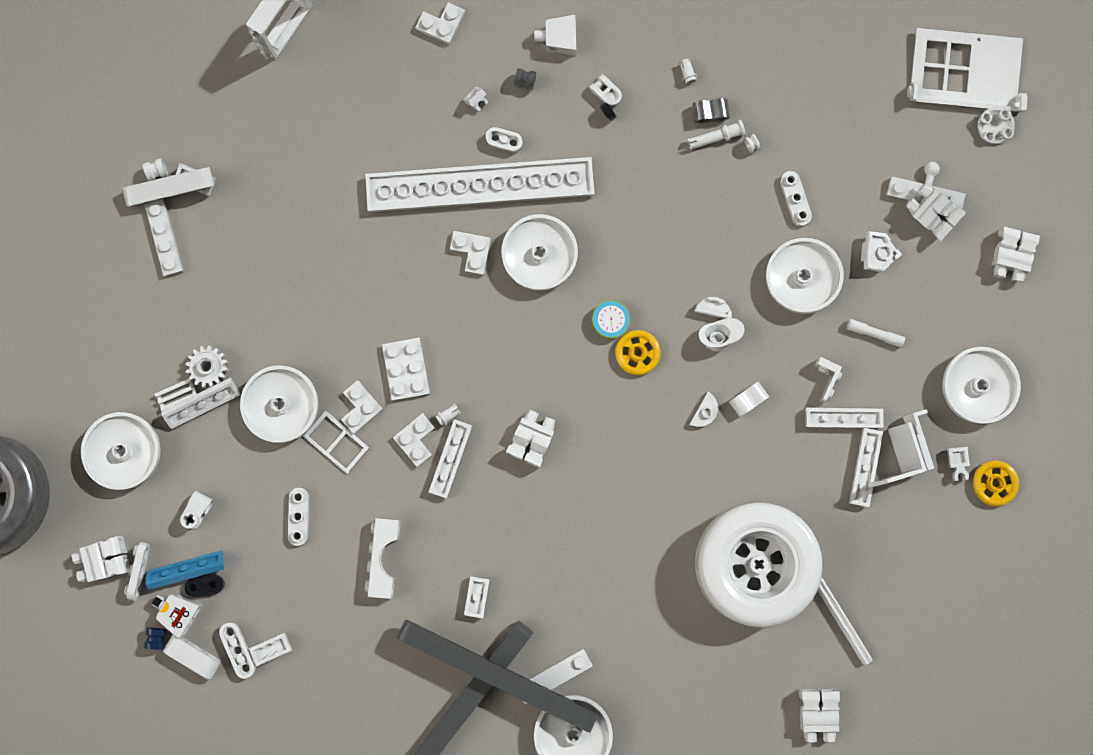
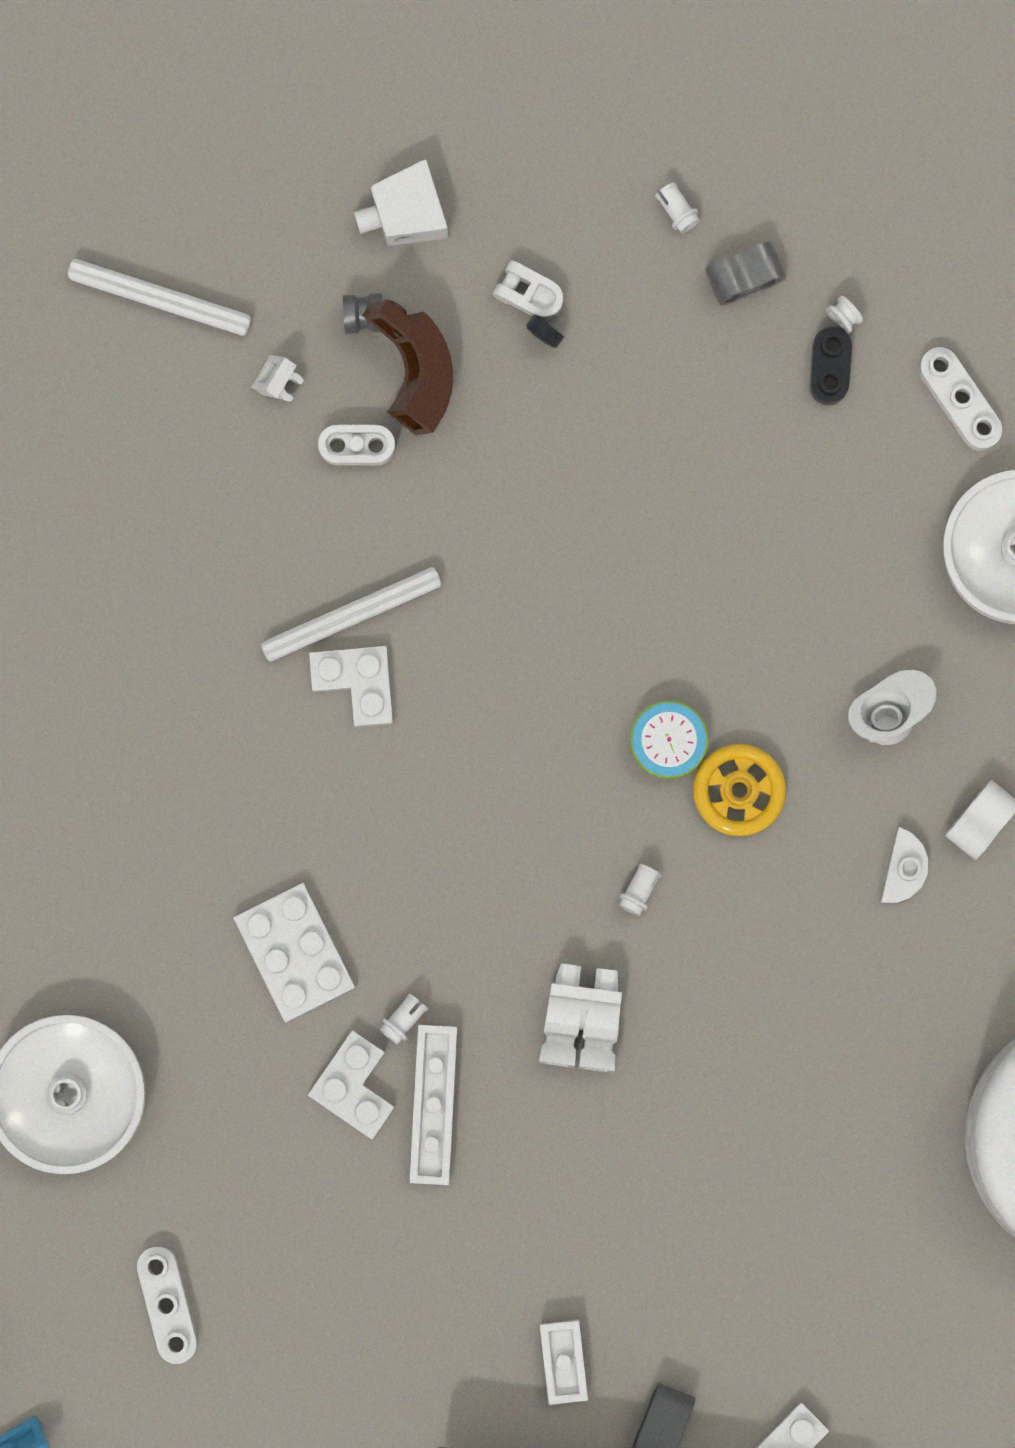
camera: 15 degrees left, 0 degrees up
(333, 445) = (210, 1110): white window -> none
(365, 407) = (237, 1053): white plate -> none
(380, 583) = (367, 1389): white arch -> none
(431, 45) = (159, 297): none -> white axle
(444, 27) = (171, 258): white plate -> none
(478, 218) = (351, 614): none -> white axle
(479, 184) = (333, 547): white plate -> none
(539, 252) = (491, 648): white dish -> none
(547, 111) = (426, 364): none -> reddish brown arch
(576, 386) = (639, 890): none -> white pin
(714, 307) = (863, 659): white plate -> none
(725, 133) = (786, 309): white pin -> none
(739, 165) = (830, 364): none -> black plate

